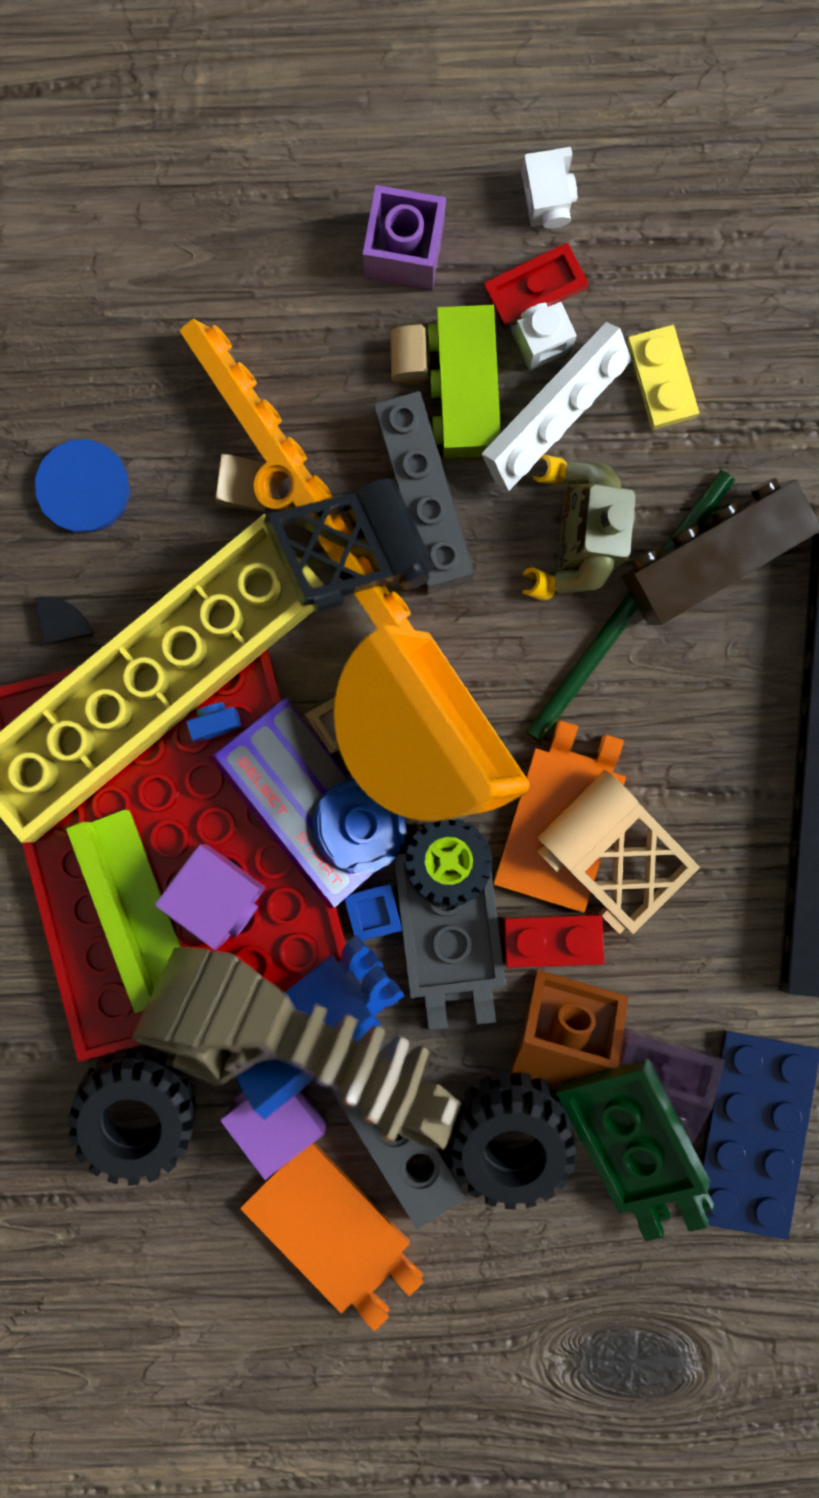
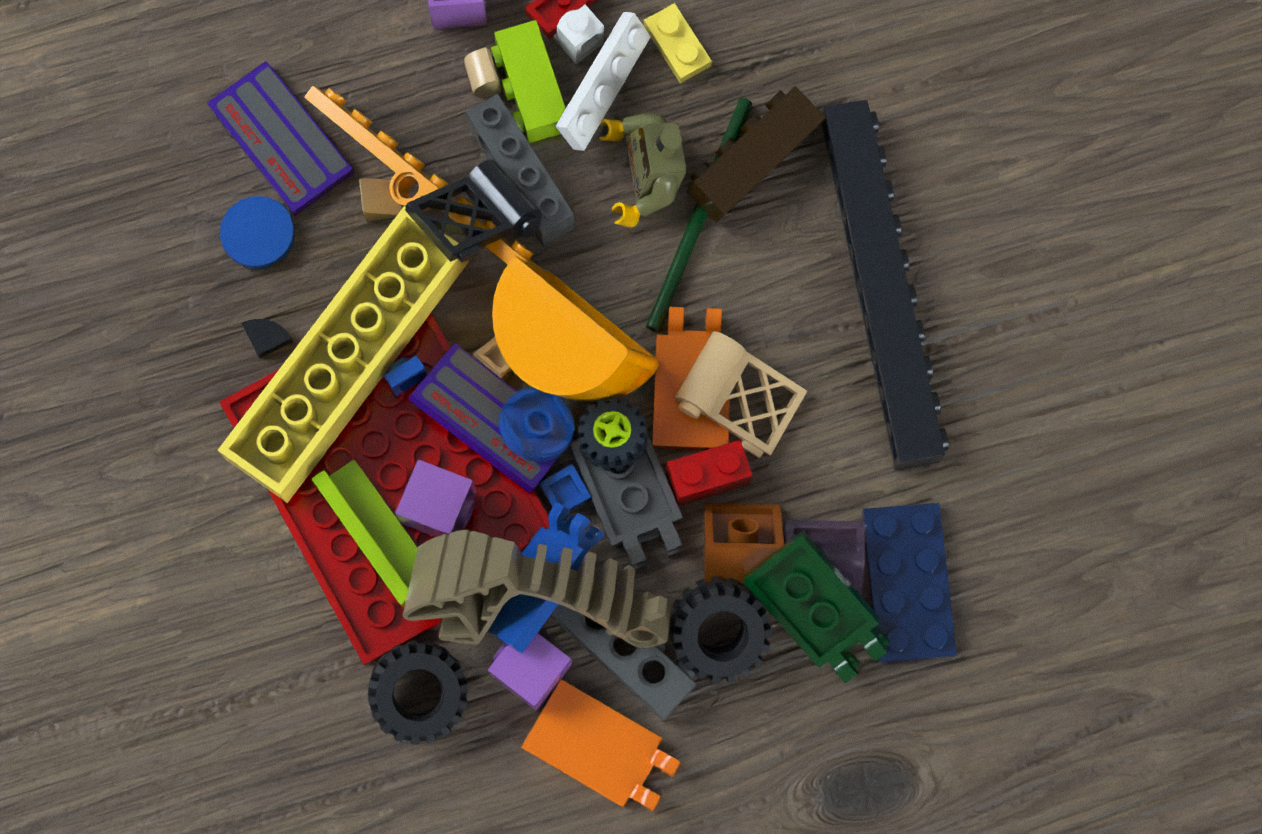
camera: 15 degrees left, 10 degrees down
(139, 371) = (280, 138): none -> dark grey tile

